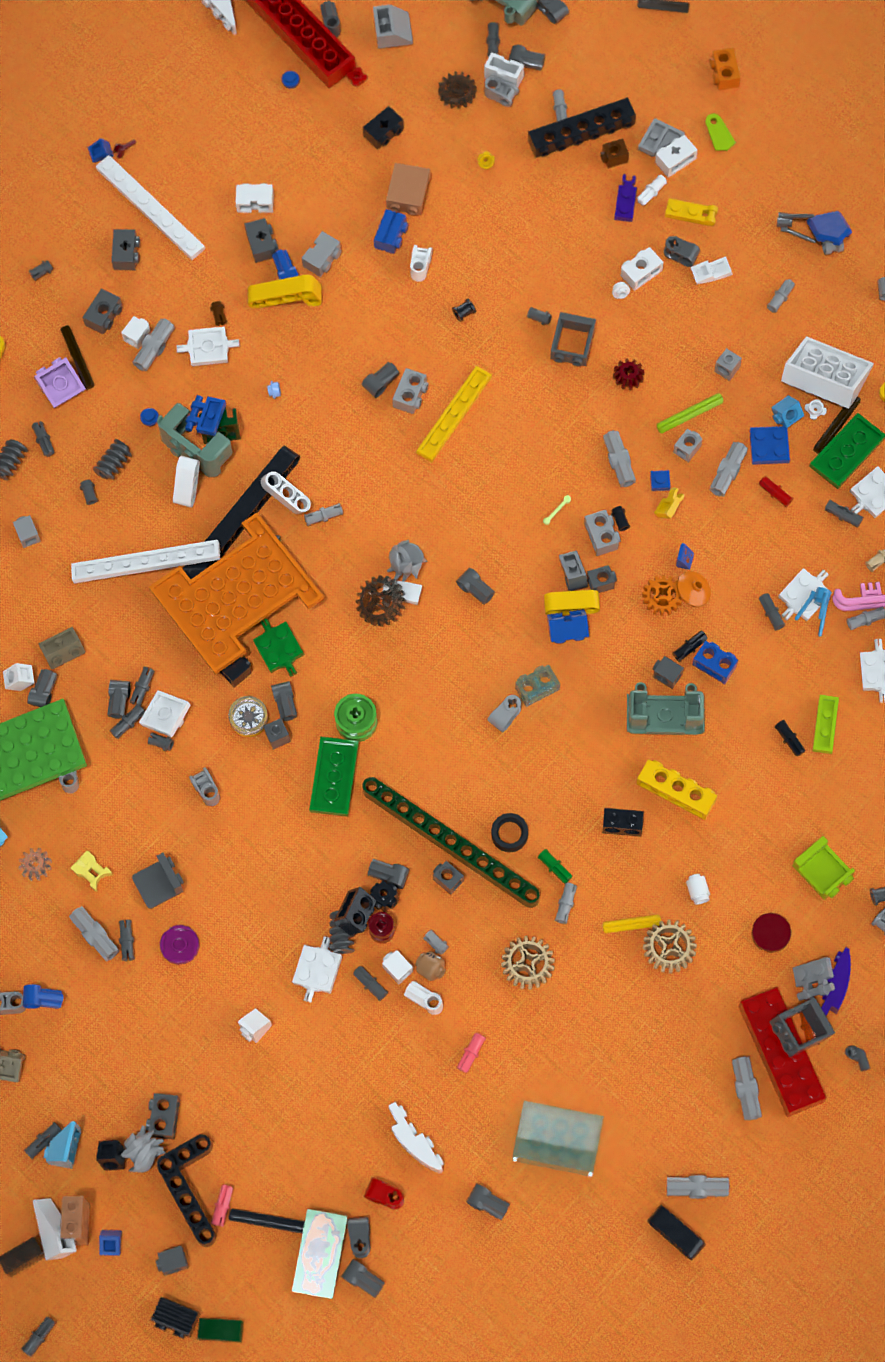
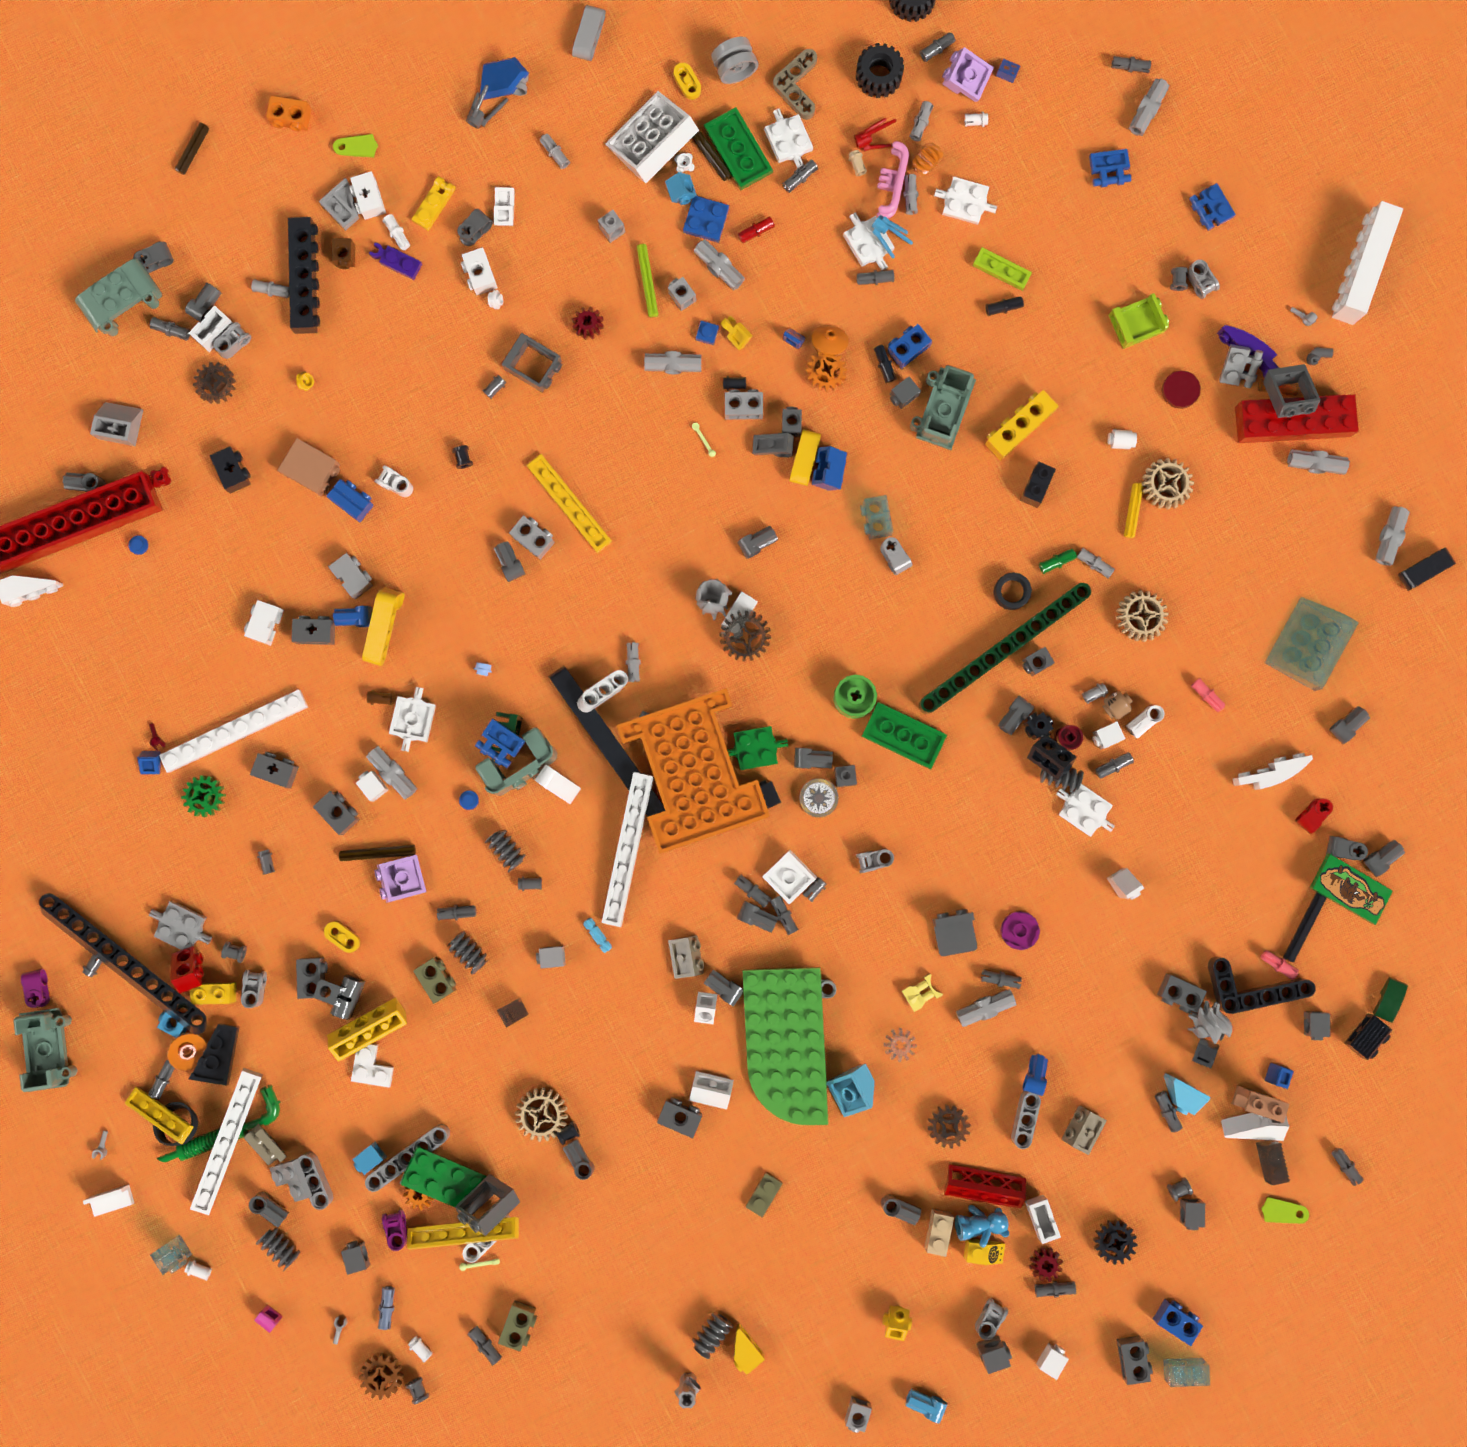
camera: 75 degrees left, 15 degrees up
(58, 565) = (597, 935): none -> medium azure axle
(84, 207) = (199, 789): none -> green gear

